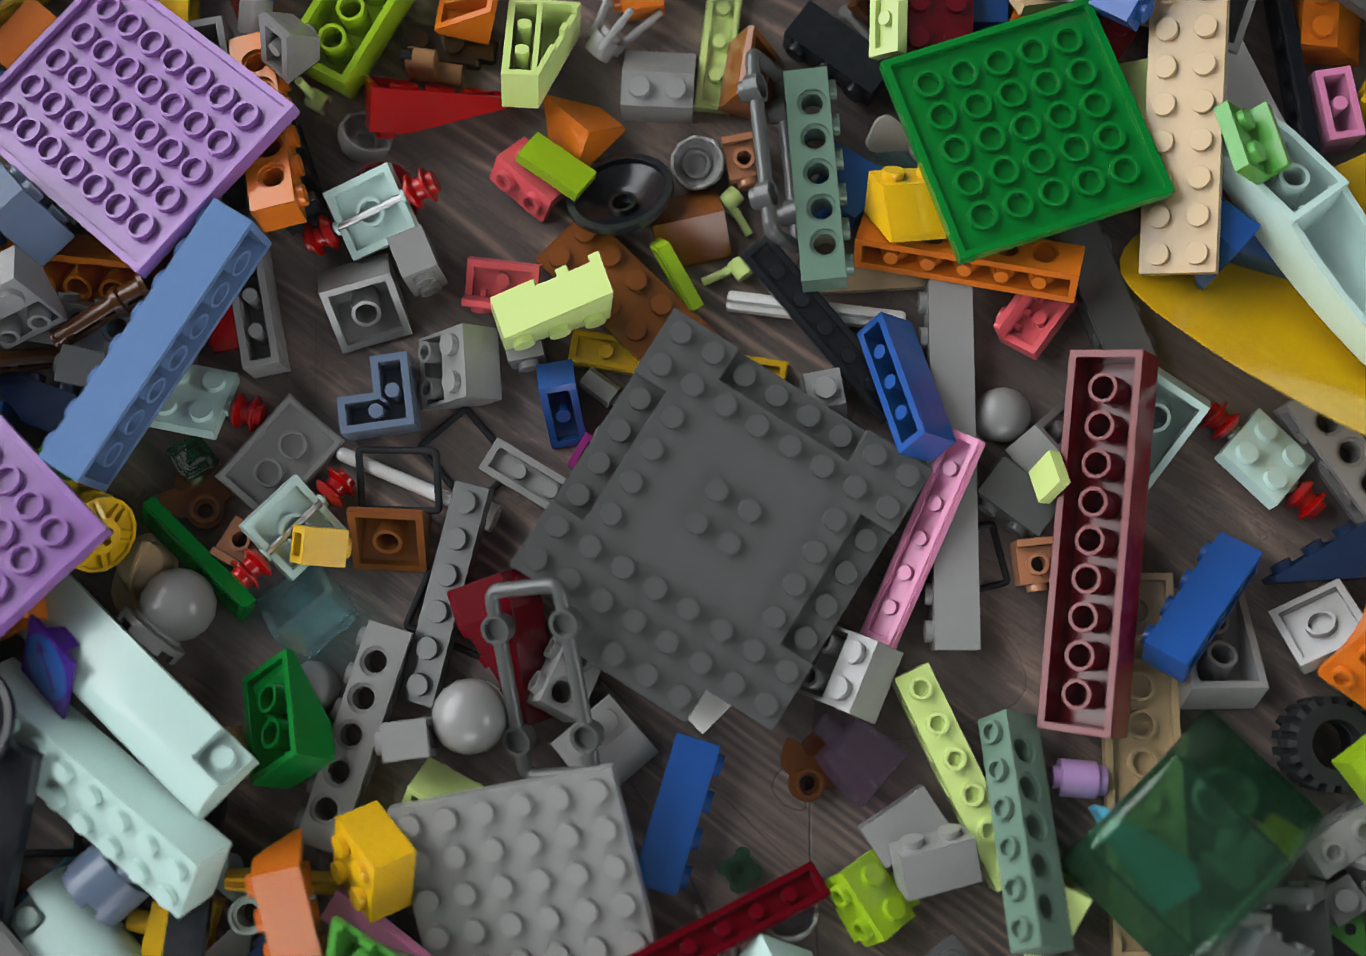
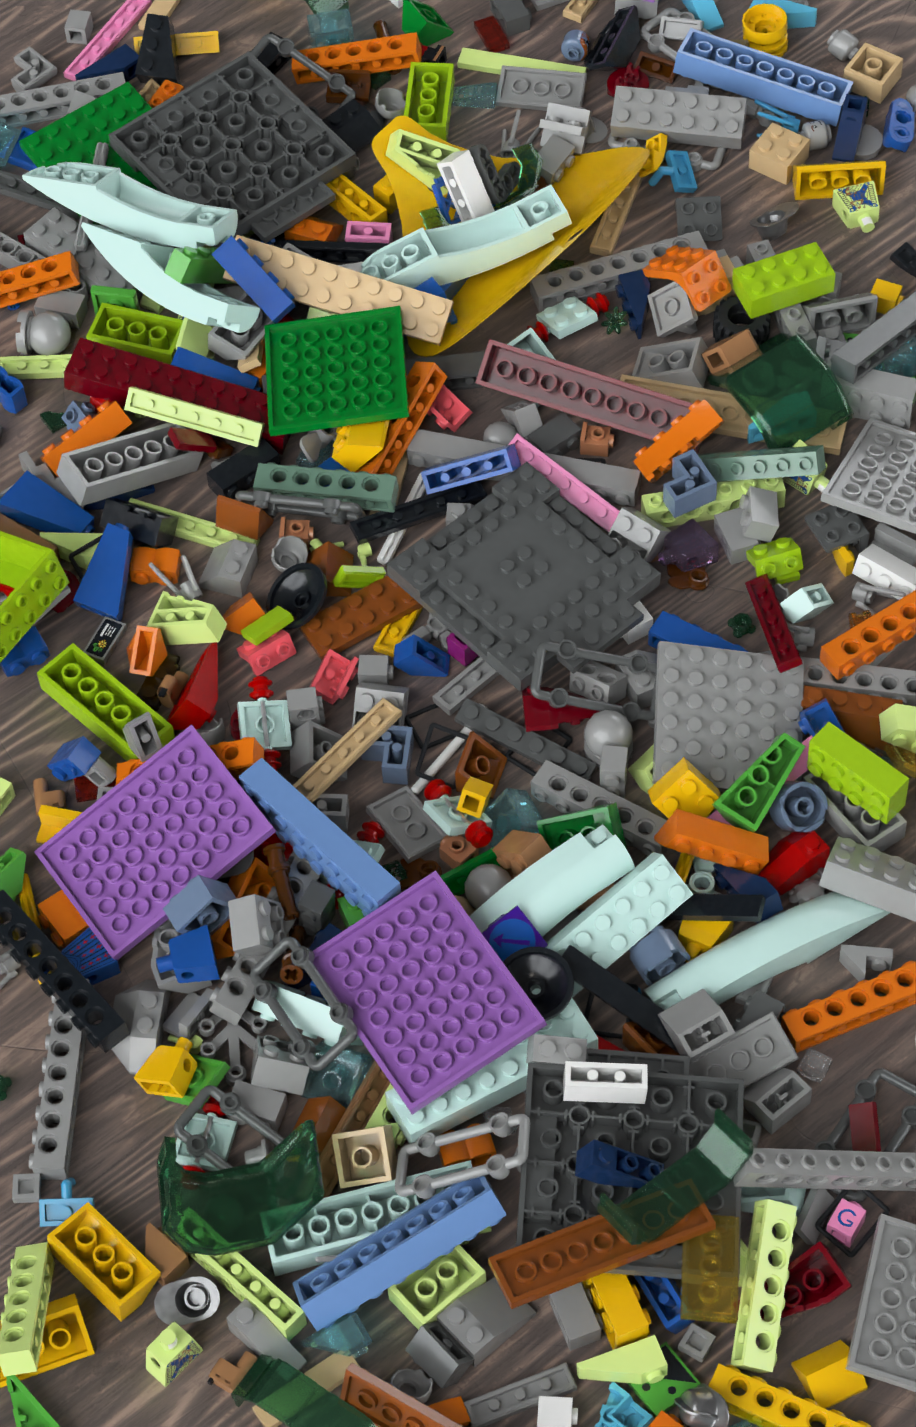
camera: 75 degrees left, 25 degrees down
(218, 651) = (520, 850): none -> medium nougat brick
(340, 337) = (348, 749): none -> tan tile
(553, 306) = (361, 631): yellowish green wedge -> none
(946, 750) = (691, 485): none -> sand blue brick
(1038, 699) = (684, 436): none -> orange wedge
(1049, 477) = (547, 411): yellowish green tile -> none
(1078, 778) = (731, 441): lavender brick -> none
(1200, 605) = (645, 360): blue brick -> none
(1253, 141) = (384, 260): bright green bracket -> none
(1256, 738) = (729, 351): none -> medium nougat slope
(1282, 535) = (615, 321): none -> clear green plant

